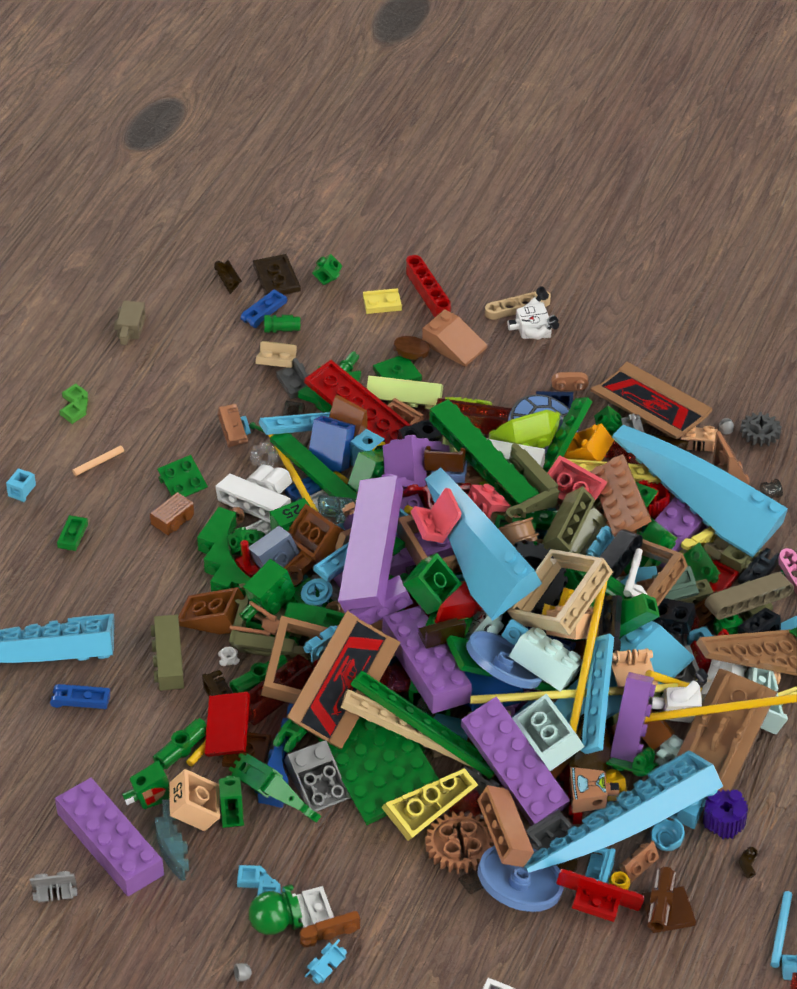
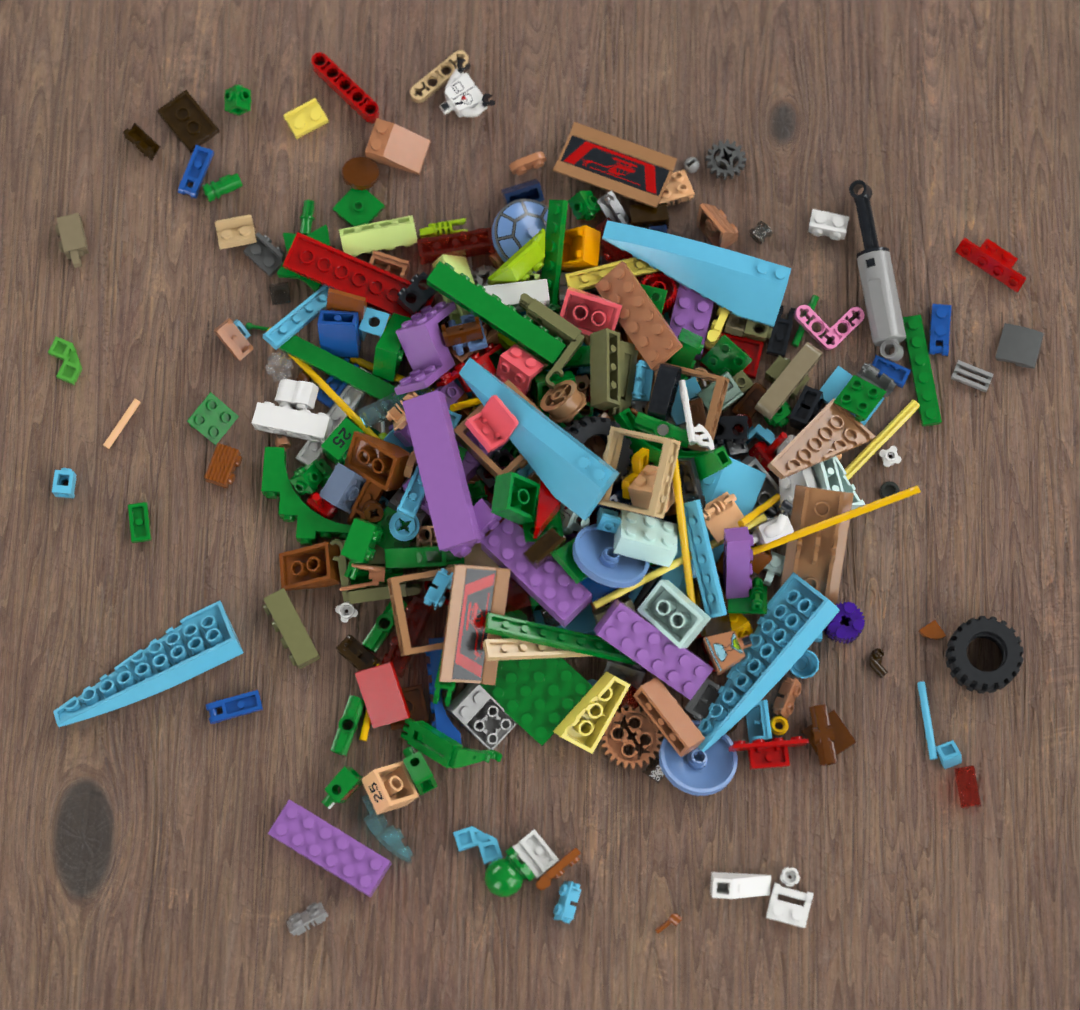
camera: 20 degrees left, 30 degrees up
(242, 972) = (502, 939): light grey hinge -> none

